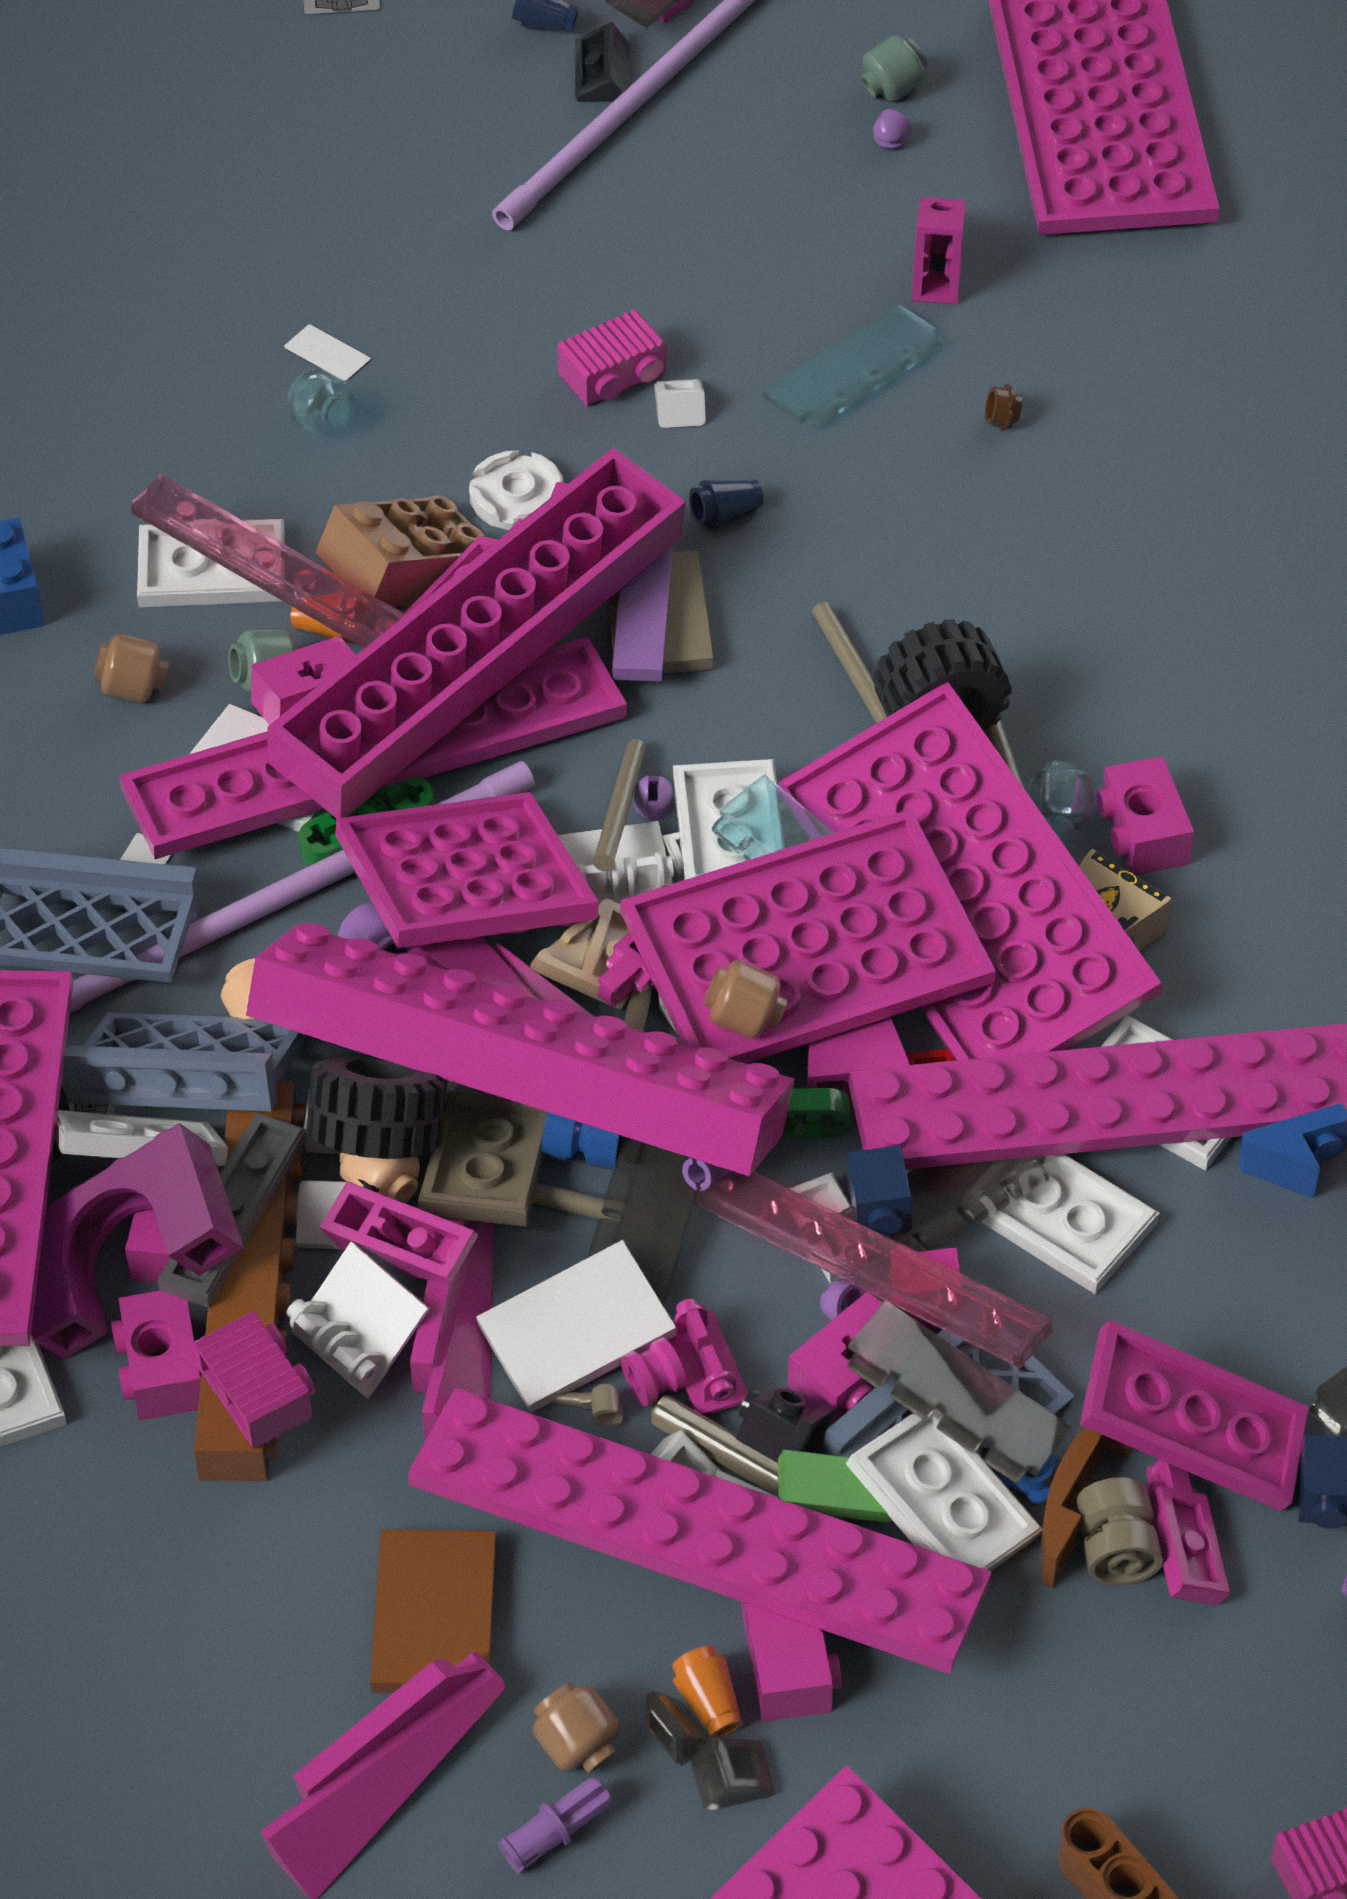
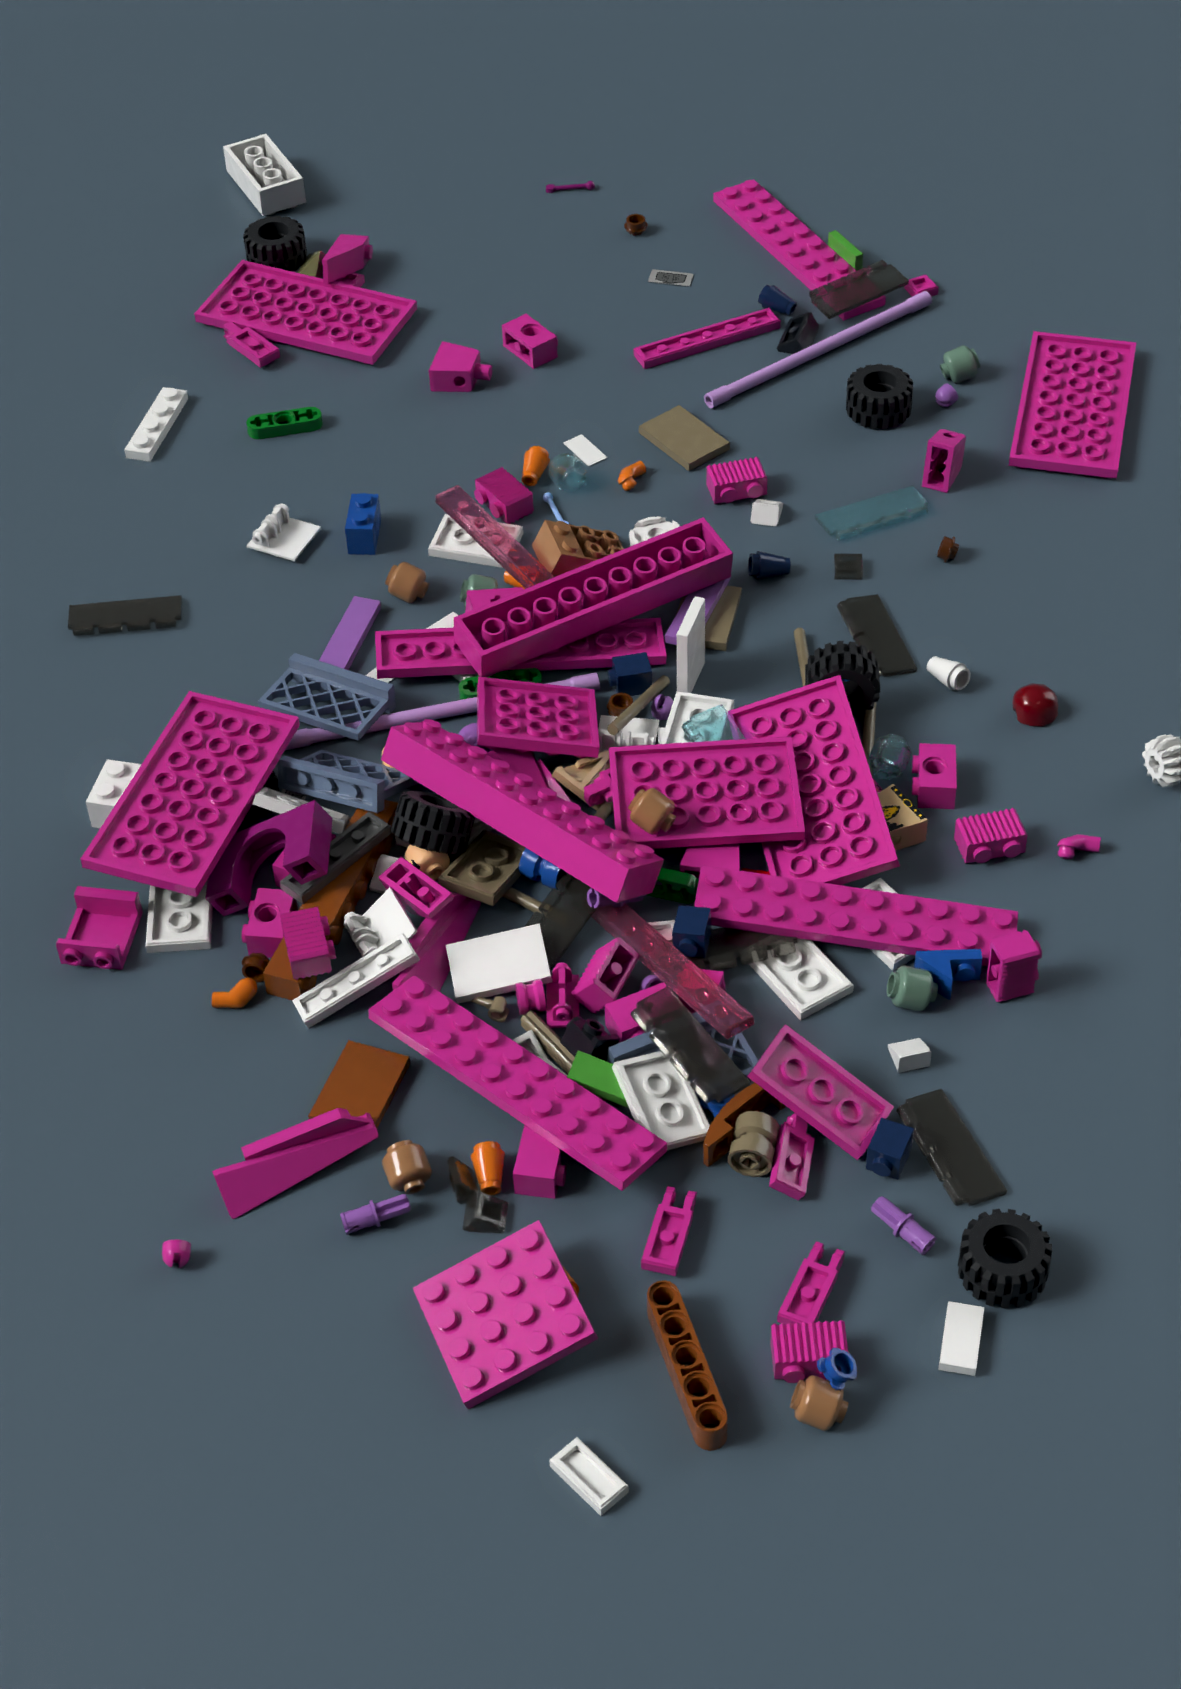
camera: 20 degrees right, 5 degrees down
(49, 247) = (457, 369): none -> dark pink torso
(67, 784) = (351, 632): none -> medium lavender tile
(153, 169) = (529, 341): none -> dark pink brick
(156, 1501) = (237, 996): none -> orange arm
(167, 1439) = (254, 966): none -> reddish brown plate
(230, 469) = (504, 495): none -> dark pink brick
(257, 400) = (535, 463): none -> orange cone
(303, 456) = (548, 498): none -> light blue hinge
(354, 1420) = (355, 980): none -> white tile
(422, 384) = (627, 475): none -> orange arm
(449, 102) = (706, 338): none -> dark pink tile
(488, 295) = (684, 437): none -> dark tan tile
(582, 751) = (630, 674): none -> dark blue brick
(584, 810) = (618, 703): none -> reddish brown plate
(676, 683) = (691, 646): none -> white tile
(765, 1302) = (605, 975): none -> dark pink brick
(787, 154) = (879, 396): none -> black tyre
(853, 472) = (848, 567): none -> clear smoke tile
(944, 581) = (874, 629): none -> clear smoke windscreen
(1044, 1723) = (668, 1234): none -> dark pink hinge
(1093, 627) = (950, 673): none -> white cone
(1249, 652) = (1035, 705): none -> dark red hair
(1255, 1196) = (911, 988): none -> sand green head
(1272, 901) = (990, 836): none -> dark pink brick
(1292, 1308) = (910, 1054): none -> white slope
(1302, 1753) = (810, 1287): none -> dark pink hinge

